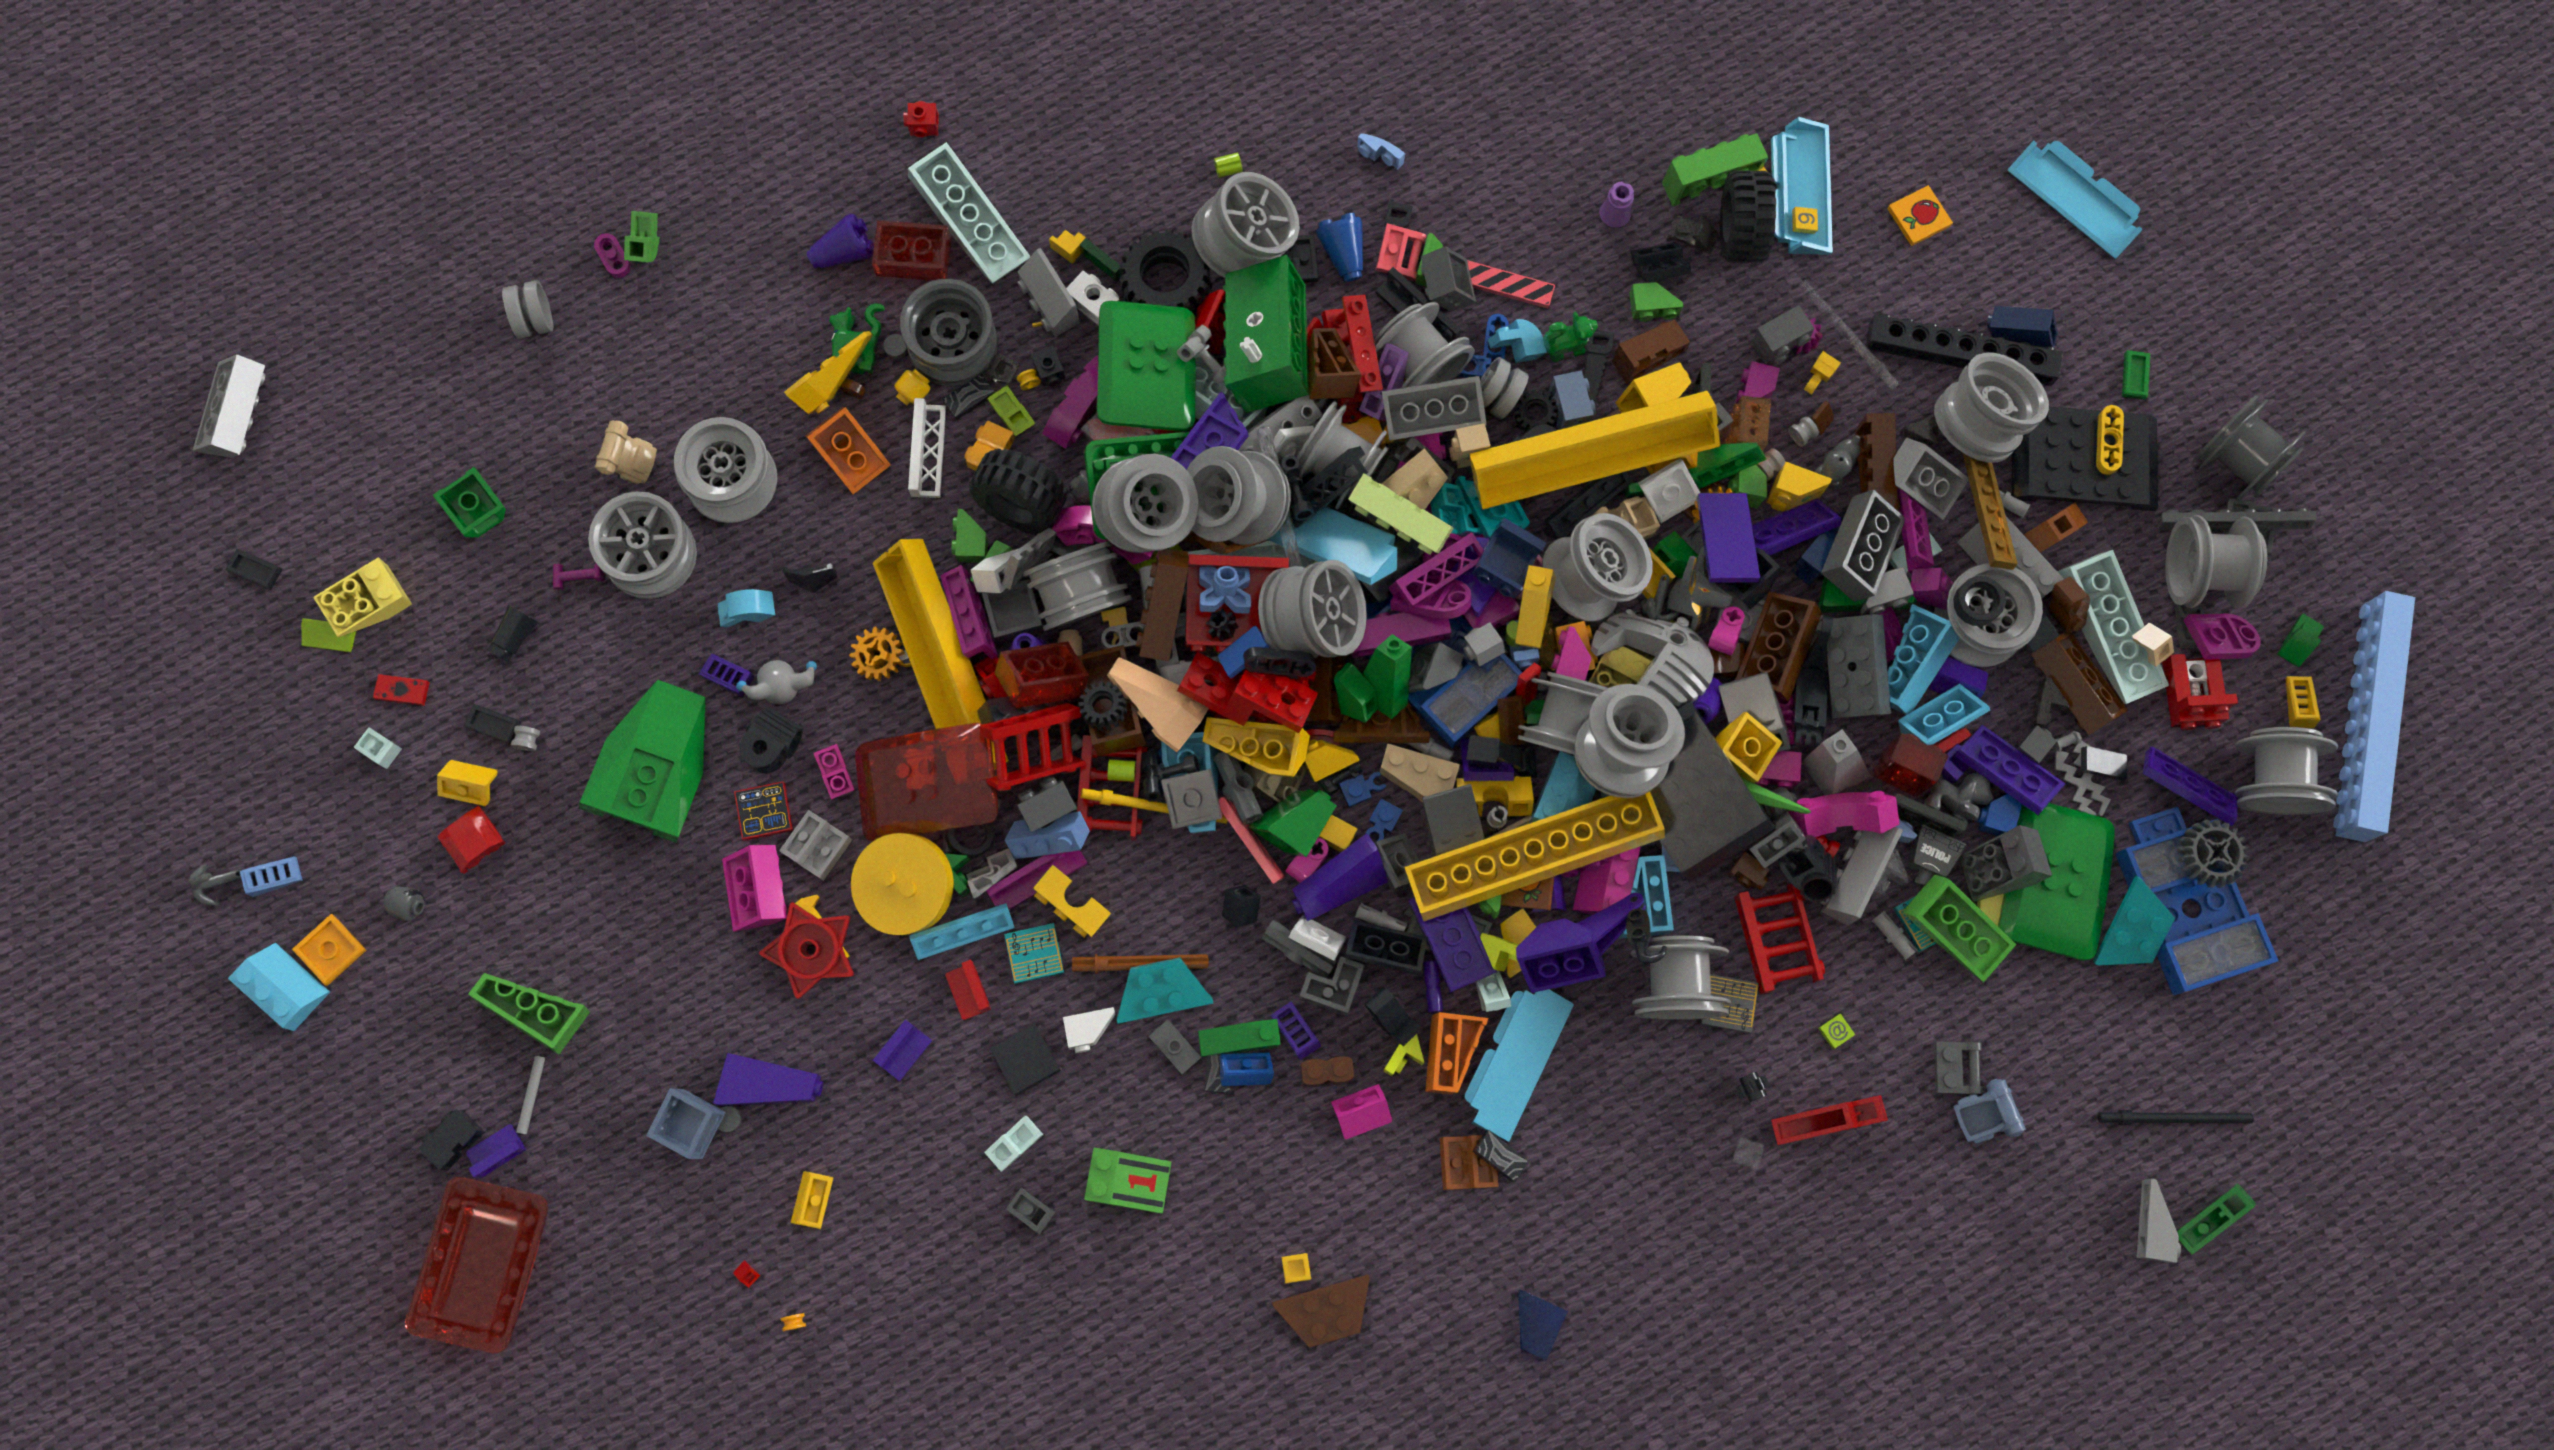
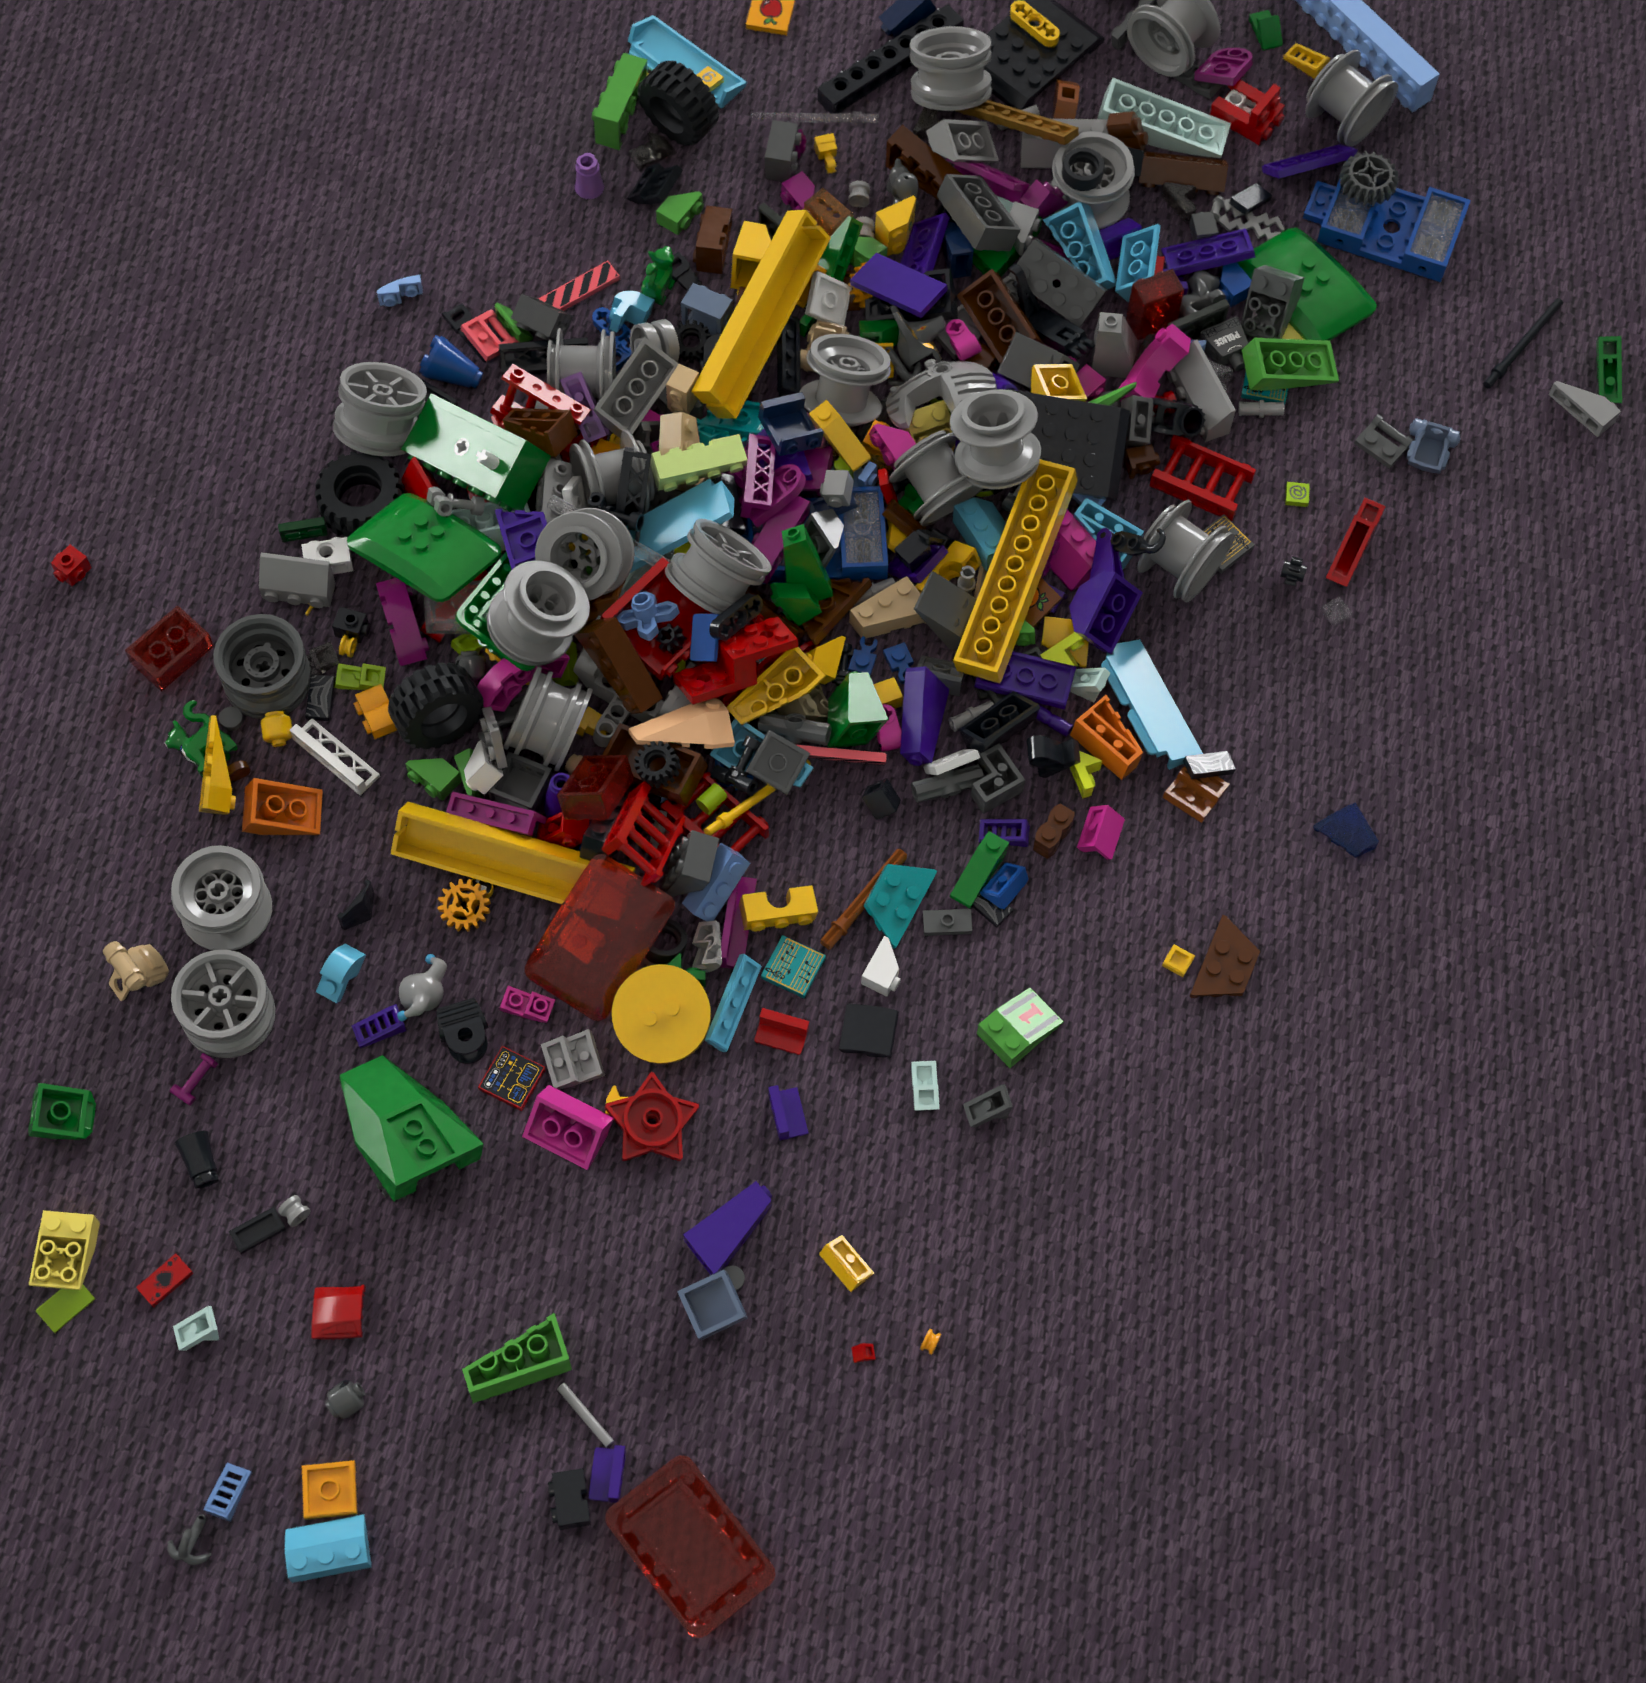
camera: 50 degrees left, 10 degrees down
(465, 782) = (289, 1283): yellow panel -> none
(842, 244) = (115, 692): dark purple cone -> none
(968, 213) = (159, 587): light aqua slope -> none
(1067, 245) = (270, 543): yellow panel -> none
(1228, 165) = (312, 394): lime piece -> none
(1823, 417) = (857, 173): reddish brown slope -> none
(2136, 928) = (1379, 263): teal wing -> none
(2156, 641) = (1197, 102): tan panel -> none

